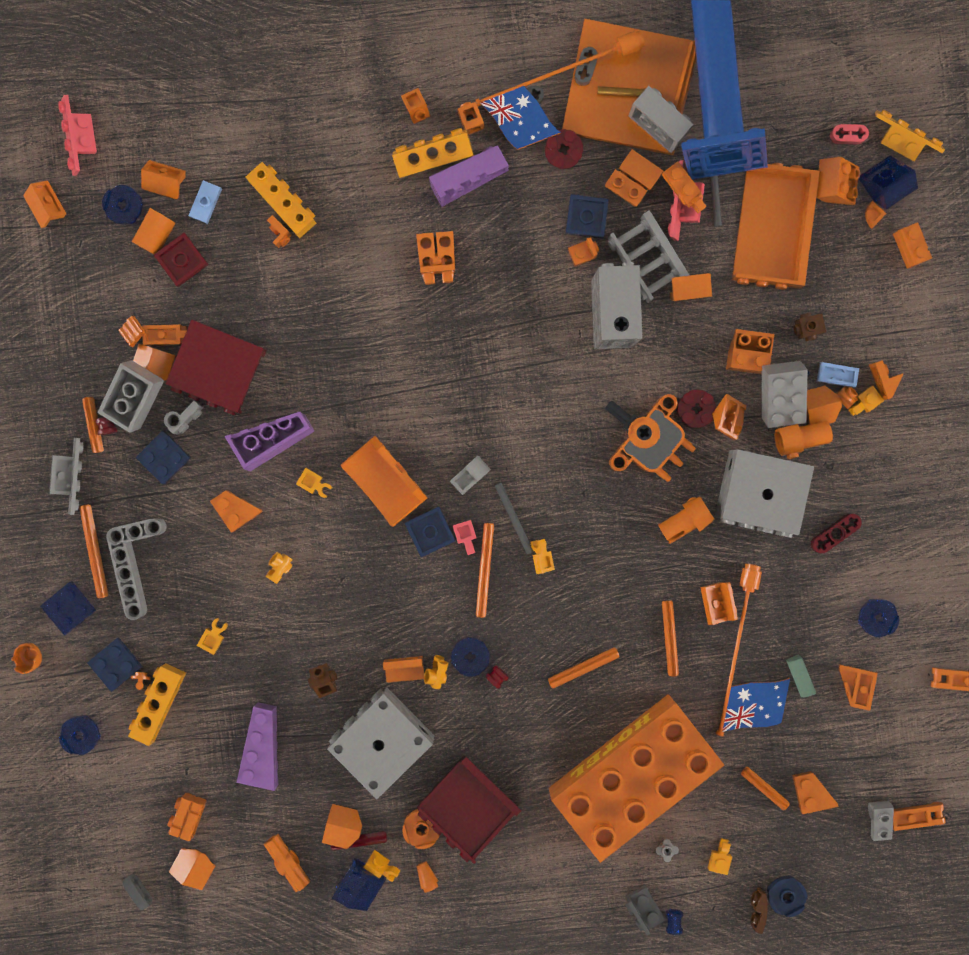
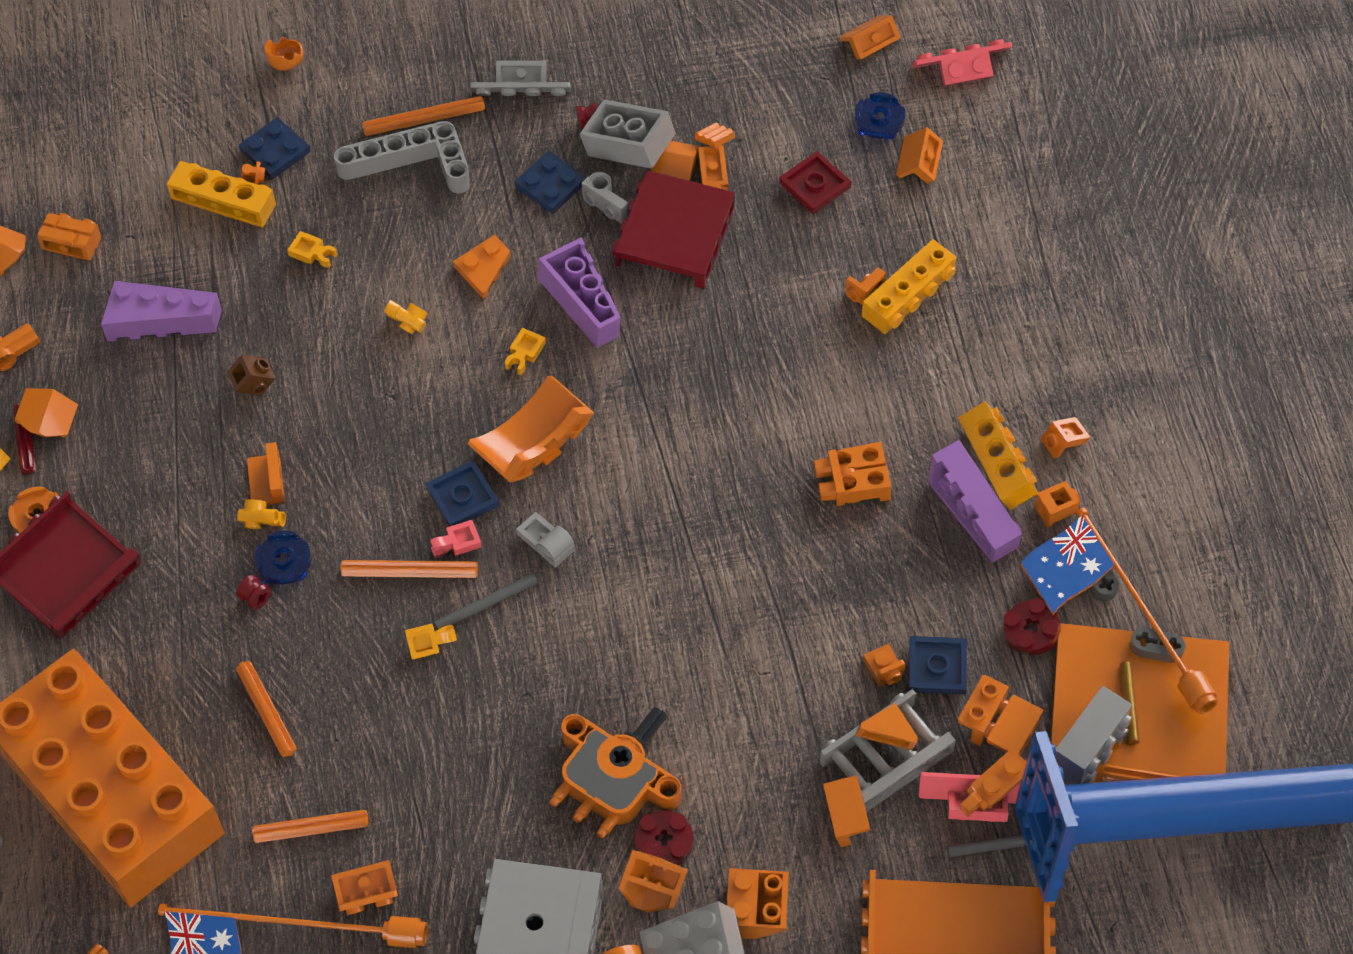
camera: 85 degrees right, 30 degrees down
(68, 608) = (348, 94): clear blue plate -> none
(90, 735) = (182, 127): clear blue plate -> none
(91, 416) = (568, 108): orange axle -> none
(153, 231) = (848, 149): orange brick -> none
(205, 202) = (896, 205): light blue plate -> none
(376, 762) = (164, 447): light grey gear -> none
(616, 306) = (801, 688): light grey gear -> none
(641, 252) = (889, 728): none -> orange slope
(692, 517) = (495, 834): orange piece -> none

